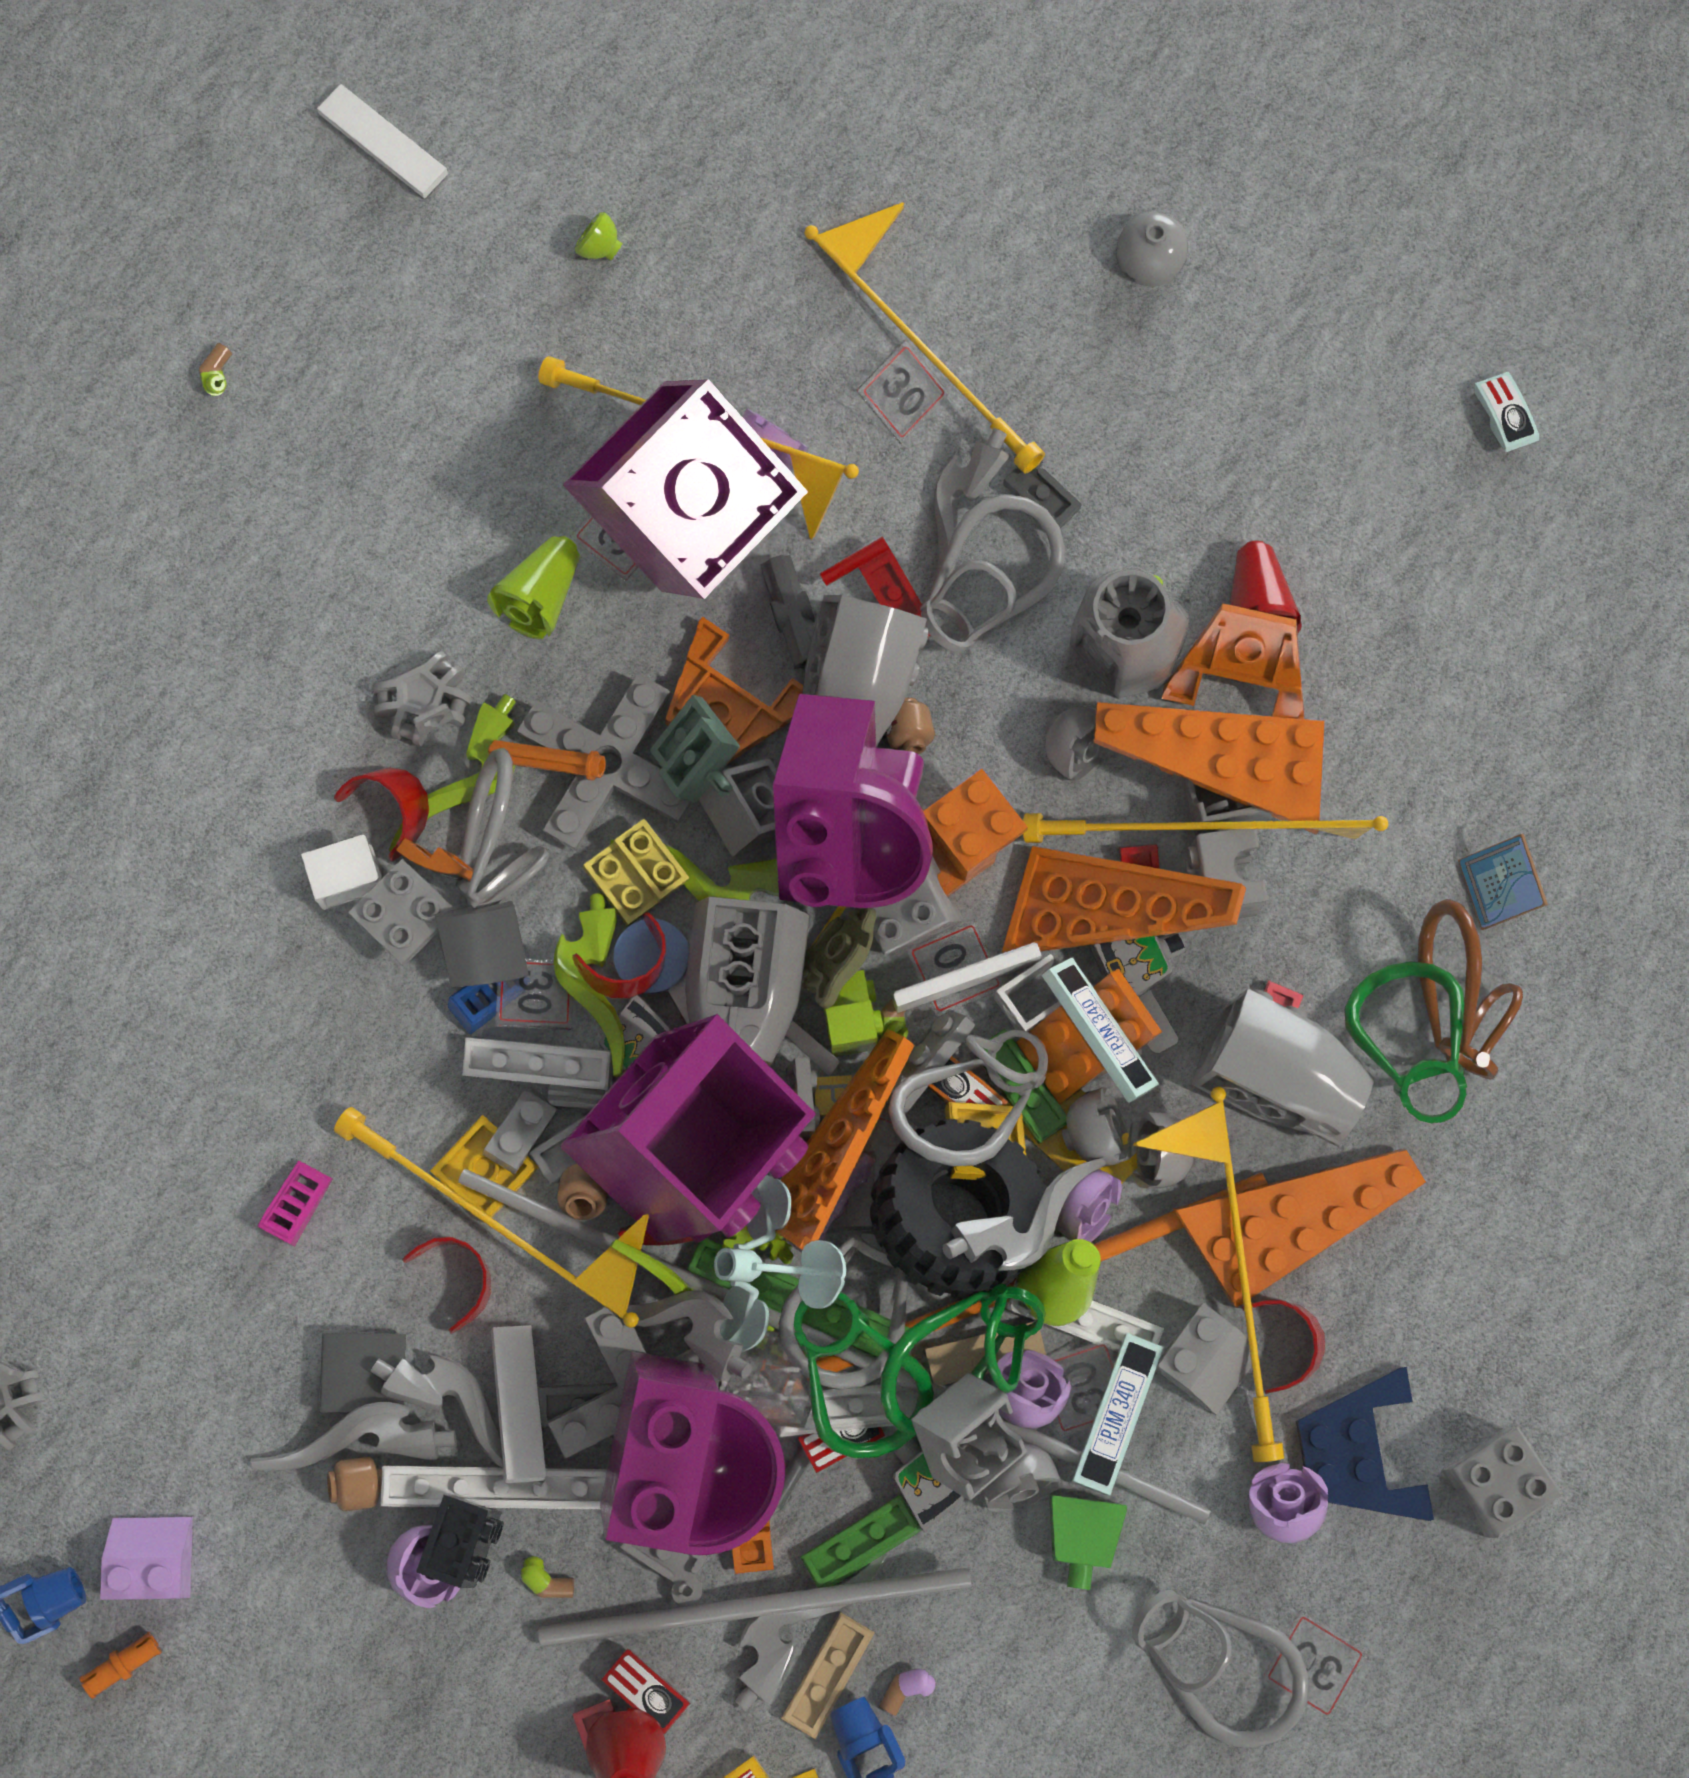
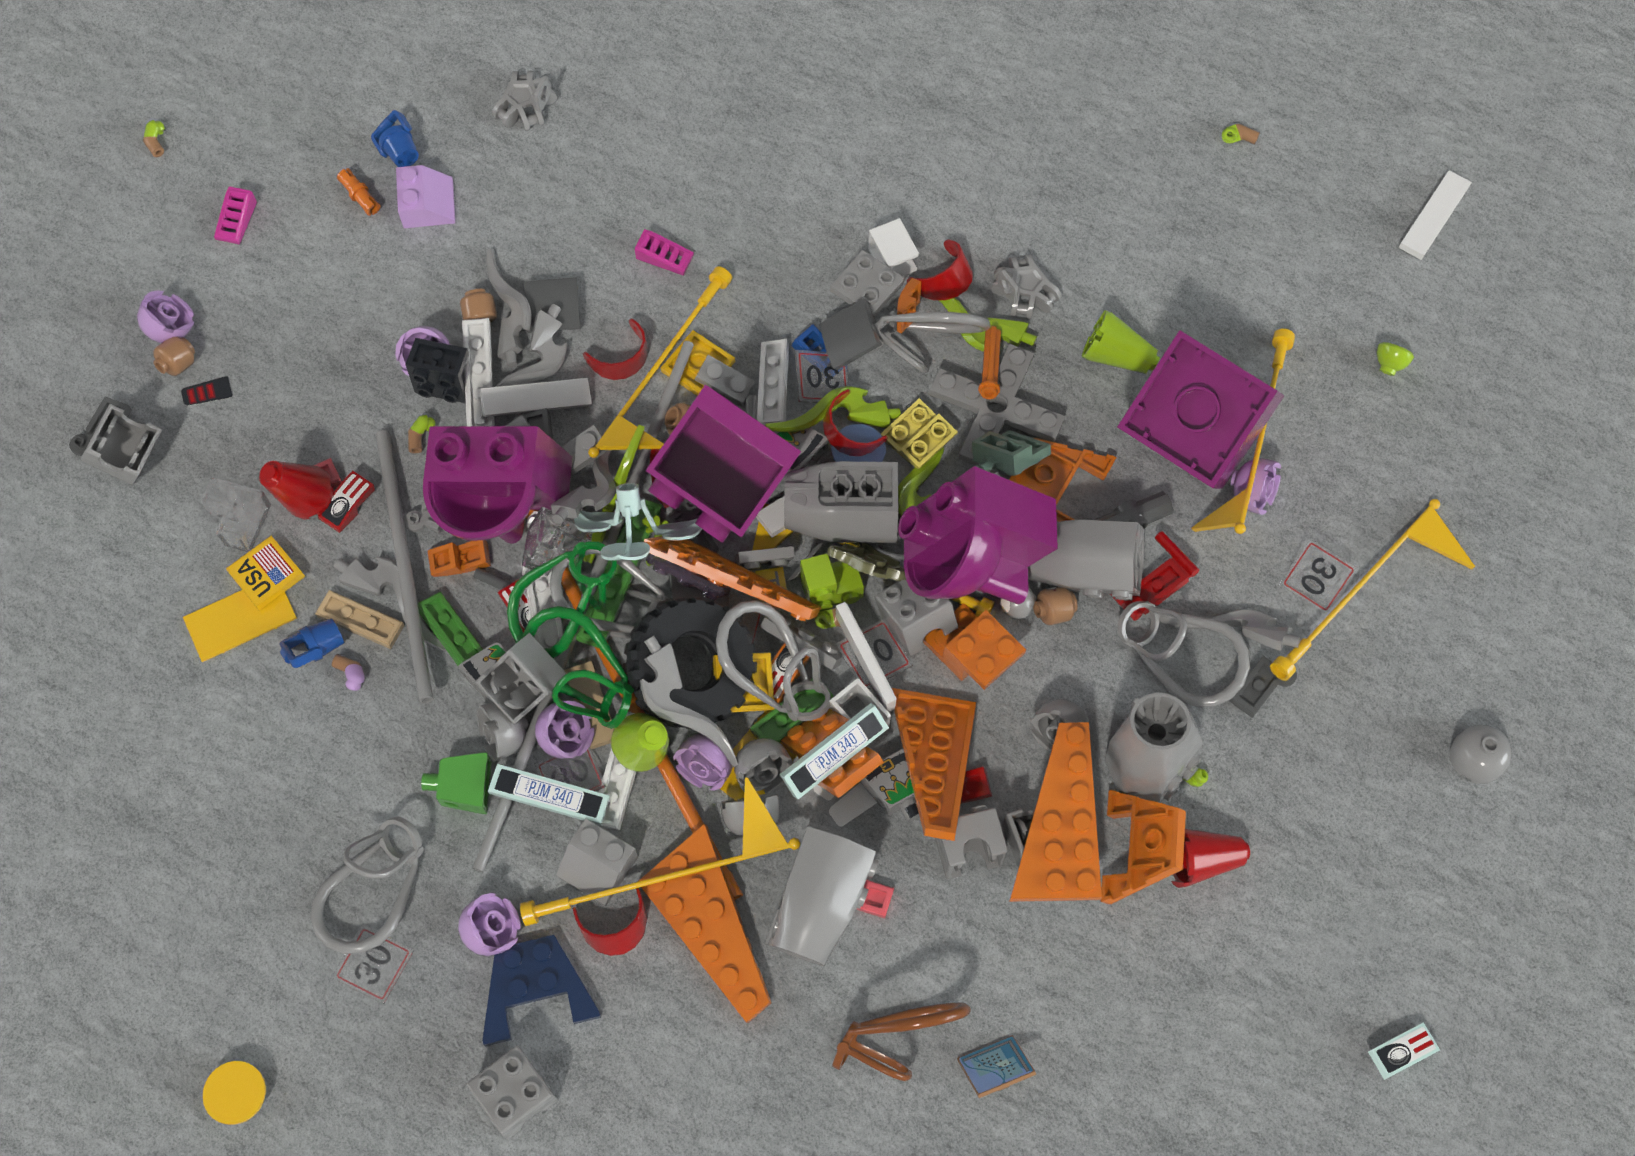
camera: 85 degrees right, 10 degrees down
(1347, 828) = (991, 703): yellow piece -> none
(1417, 1071) = (829, 1003): green animal -> none

